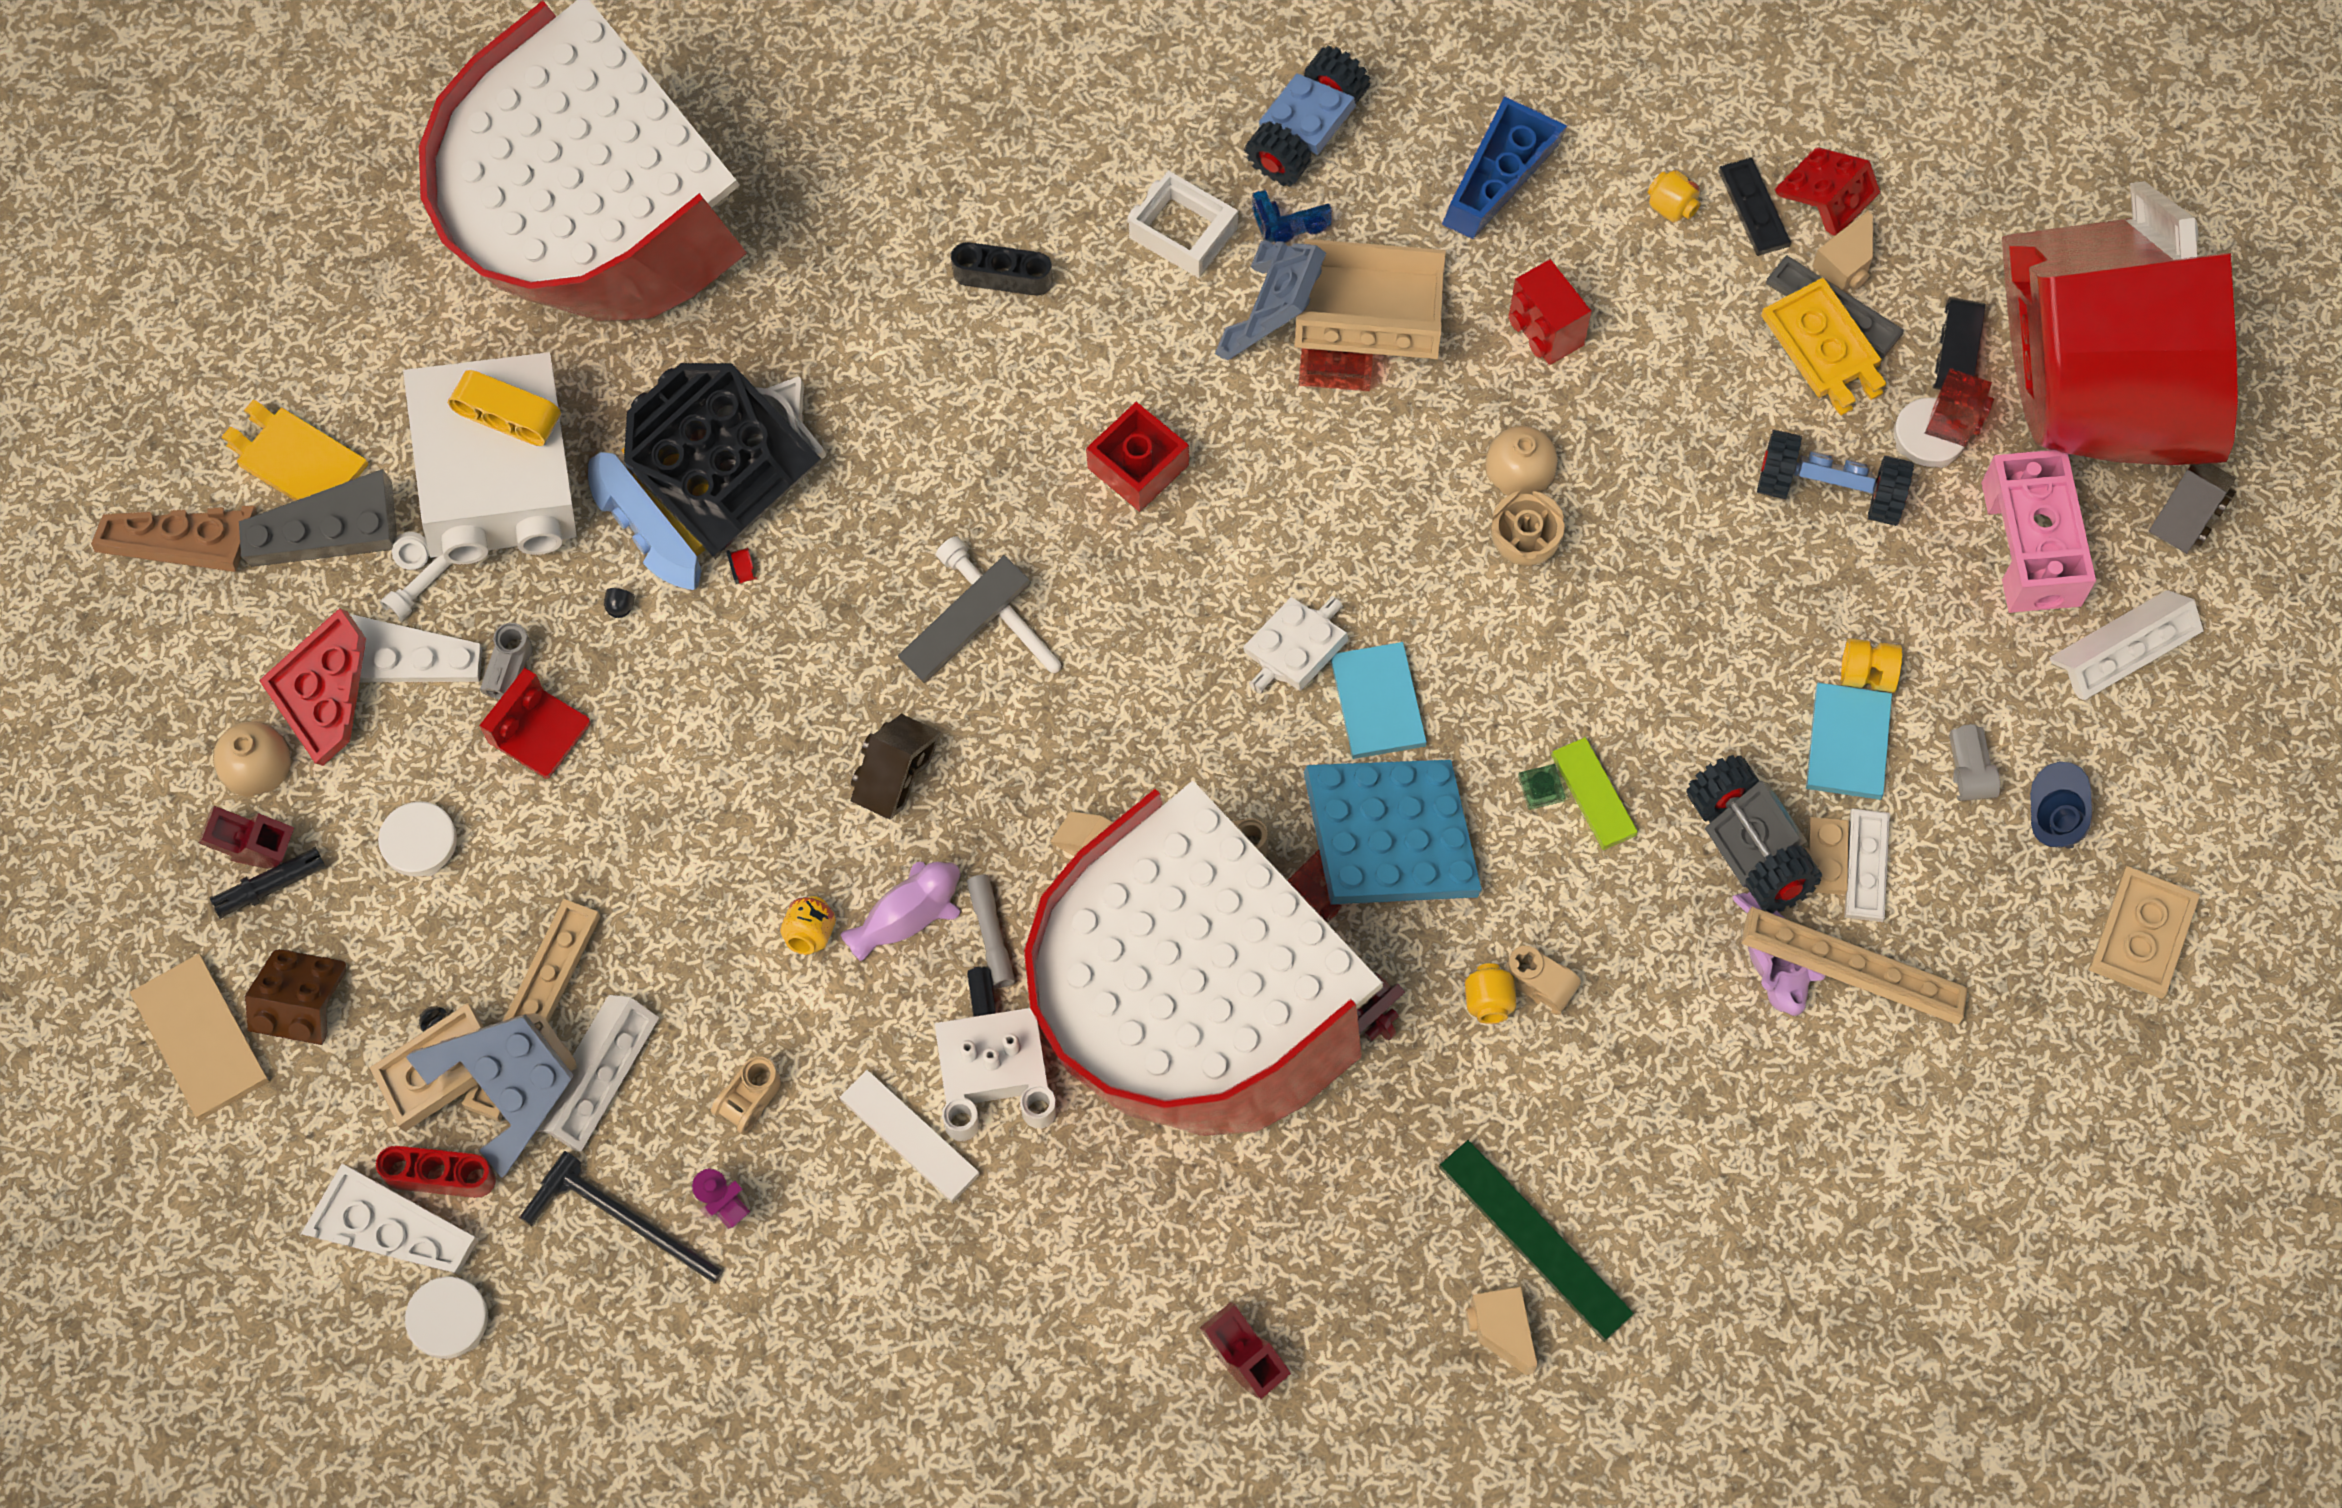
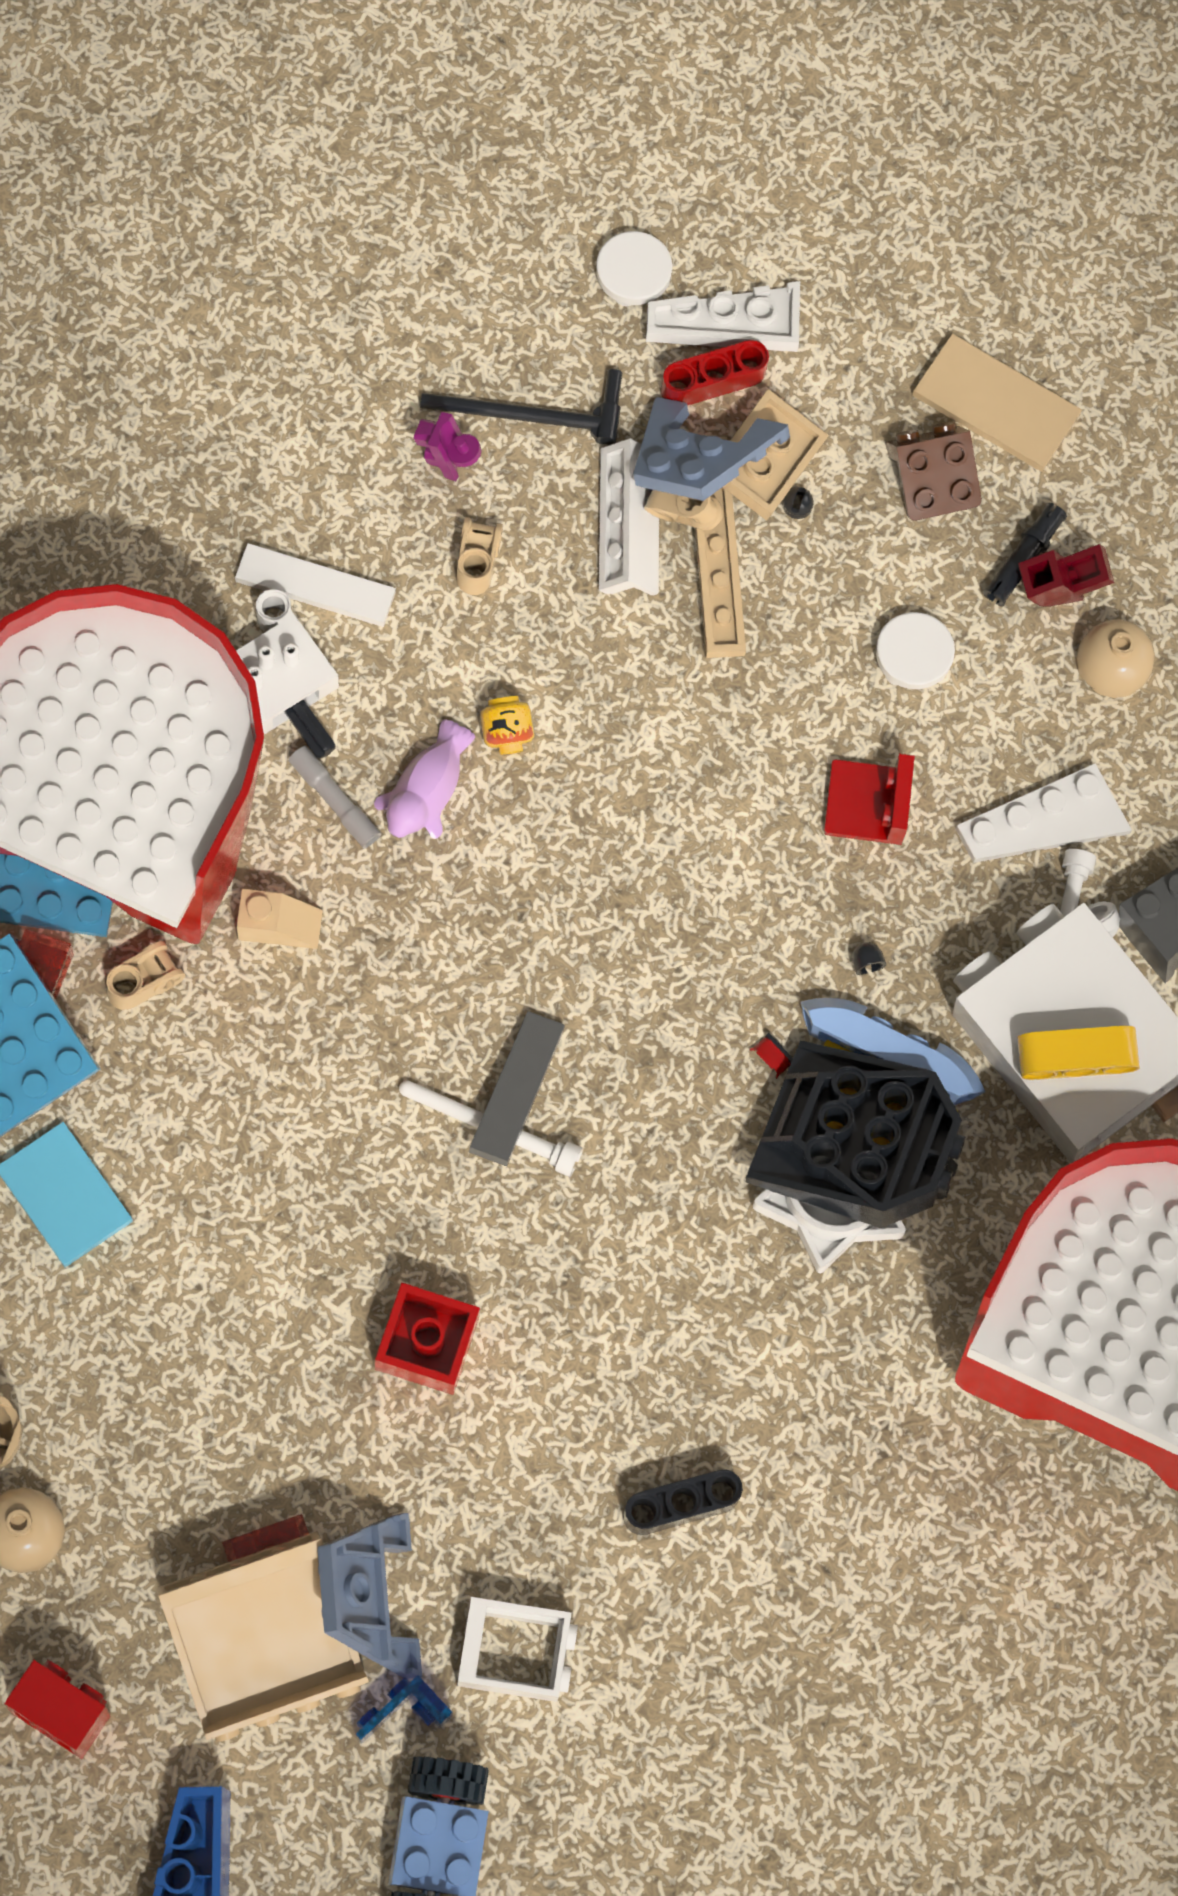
camera: 145 degrees right, 5 degrees up
(320, 686) = (1093, 743): plate -> none
(506, 663) = (936, 848): light grey piece -> none
(891, 763) = (506, 900): dark brown brick -> none
(1295, 644) = (172, 1214): white plate -> none

